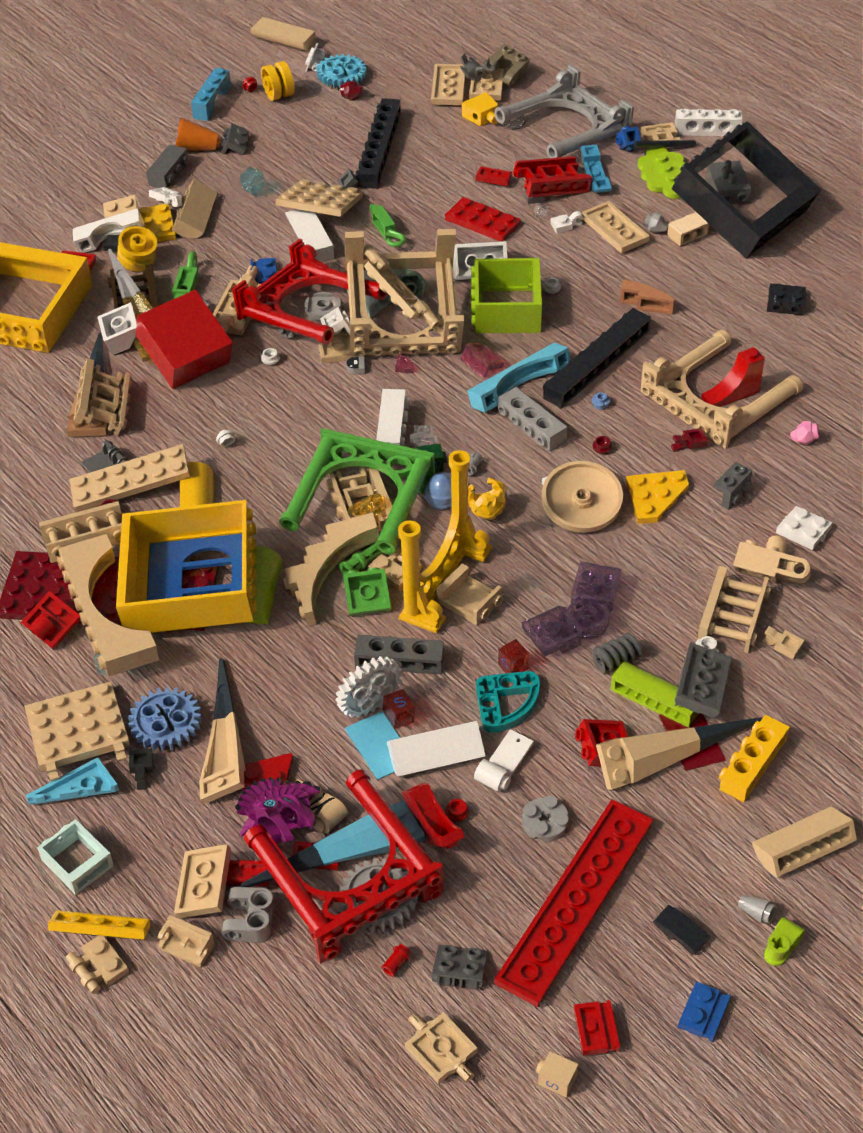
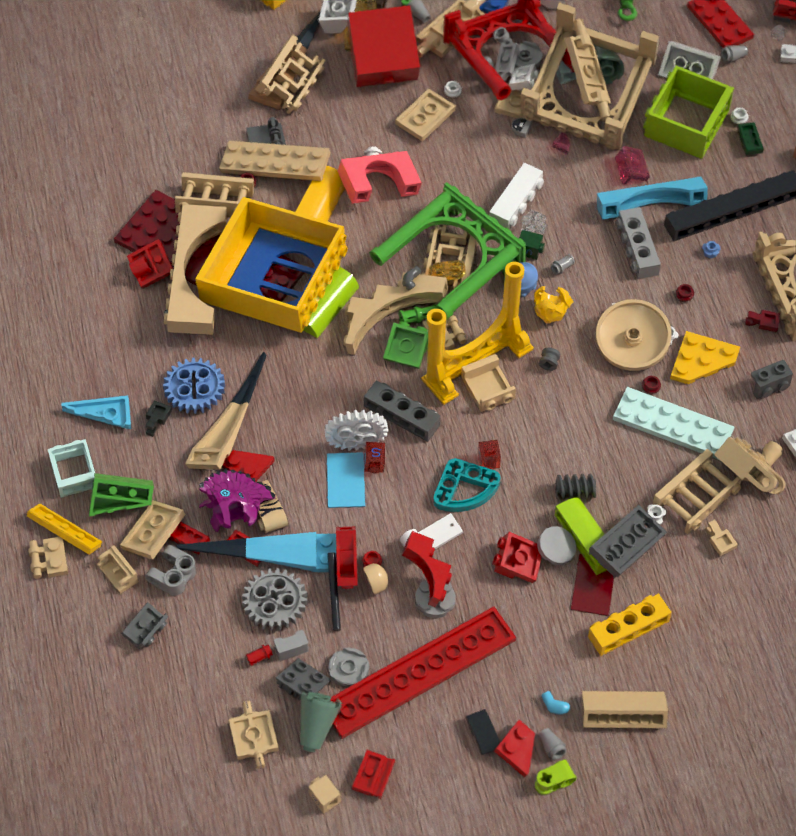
camera: 25 degrees right, 10 degrees up
(76, 727) = (125, 363): tan plate -> none
(143, 859) = (118, 493): none -> bright green wedge
(251, 987) = (144, 625): none -> dark grey bracket
(257, 387) = (425, 115): none -> tan plate
(258, 438) = (395, 165): none -> coral arch
(307, 308) = (507, 53): none -> light grey plate
(326, 928) = (308, 600): red arch -> none
(336, 525) = (409, 276): none -> dark grey arm
(426, 934) = (291, 645): none -> light grey piece
(436, 748) = (384, 503): white brick -> none
(436, 856) = (334, 591): none -> black bar
(475, 824) = (377, 577): none -> tan hair
(498, 929) = (348, 667): none -> light grey tile
(504, 996) = (316, 719): none -> sand green cone
(508, 775) = (420, 551): none -> red arch
(513, 238) = (732, 53): none -> light grey cone
(514, 549) = (549, 359): none -> dark grey wheel
(574, 300) = (750, 138): none -> dark green plate
(586, 616) = (585, 430): clear purple plate -> none
(625, 534) = (651, 384): none -> dark red plate
(634, 715) = (556, 545): none -> light grey tile
(638, 756) = (536, 582): tan plate -> none
(669, 559) = (671, 422): none -> light aqua plate
(704, 1011) = (462, 801): blue plate -> none
(725, 928) = (517, 747): none -> red wing
(733, 870) = (555, 706): none -> medium azure arm

